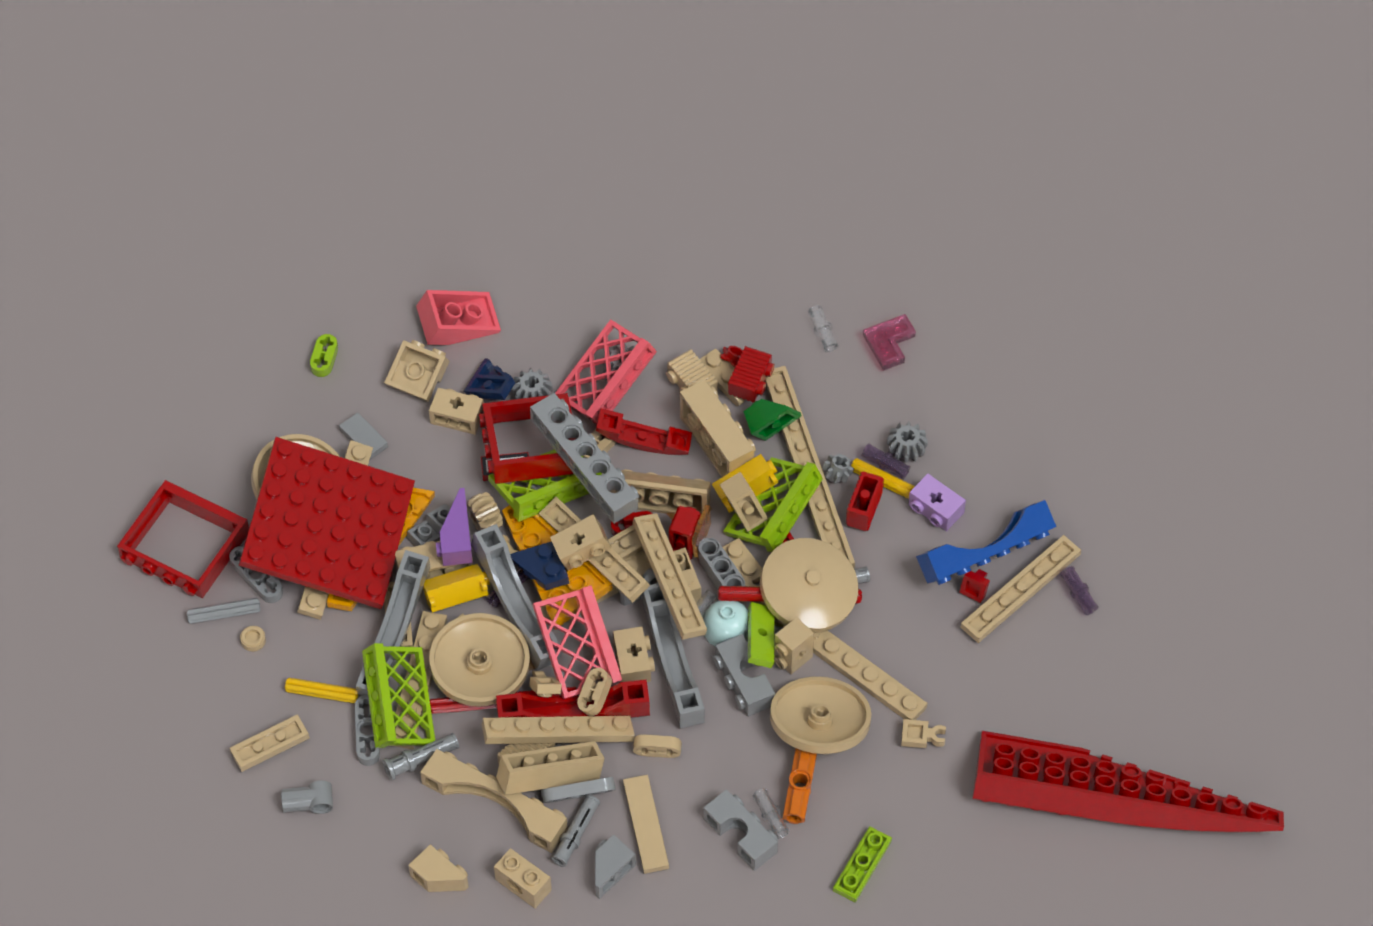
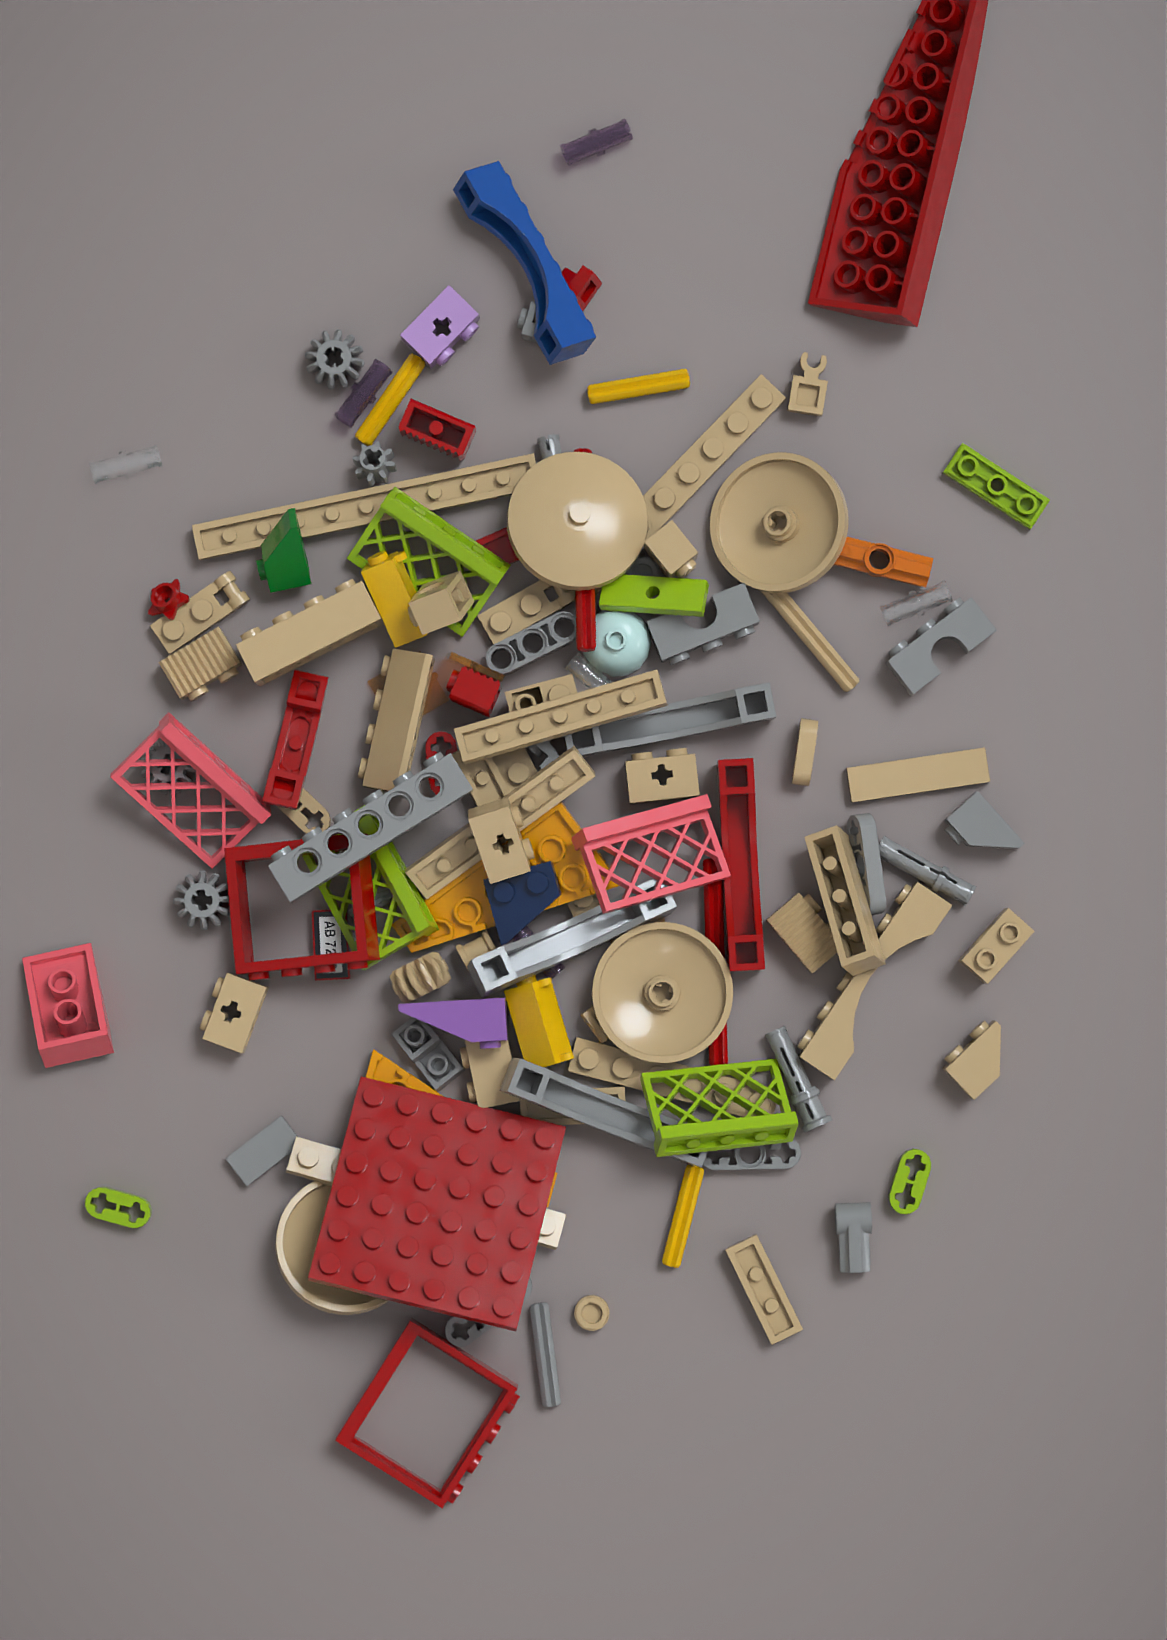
camera: 85 degrees left, 30 degrees up
(348, 835) = (918, 1182): none -> lime beam
(417, 370) = (160, 1068): tan plate -> none
(490, 382) = (191, 961): dark blue wing -> none
(544, 685) = (709, 903): tan plate -> none
(557, 729) = (782, 888): tan plate -> none
(595, 692) = (730, 825): tan beam -> none
(738, 750) = (813, 639): none -> tan axle
(750, 374) = (213, 576): red brick -> none
(884, 340) = (154, 378): clear pink plate -> none
(910, 628) = (638, 386): none -> yellow axle
(1020, 589) = (588, 223): tan plate -> none

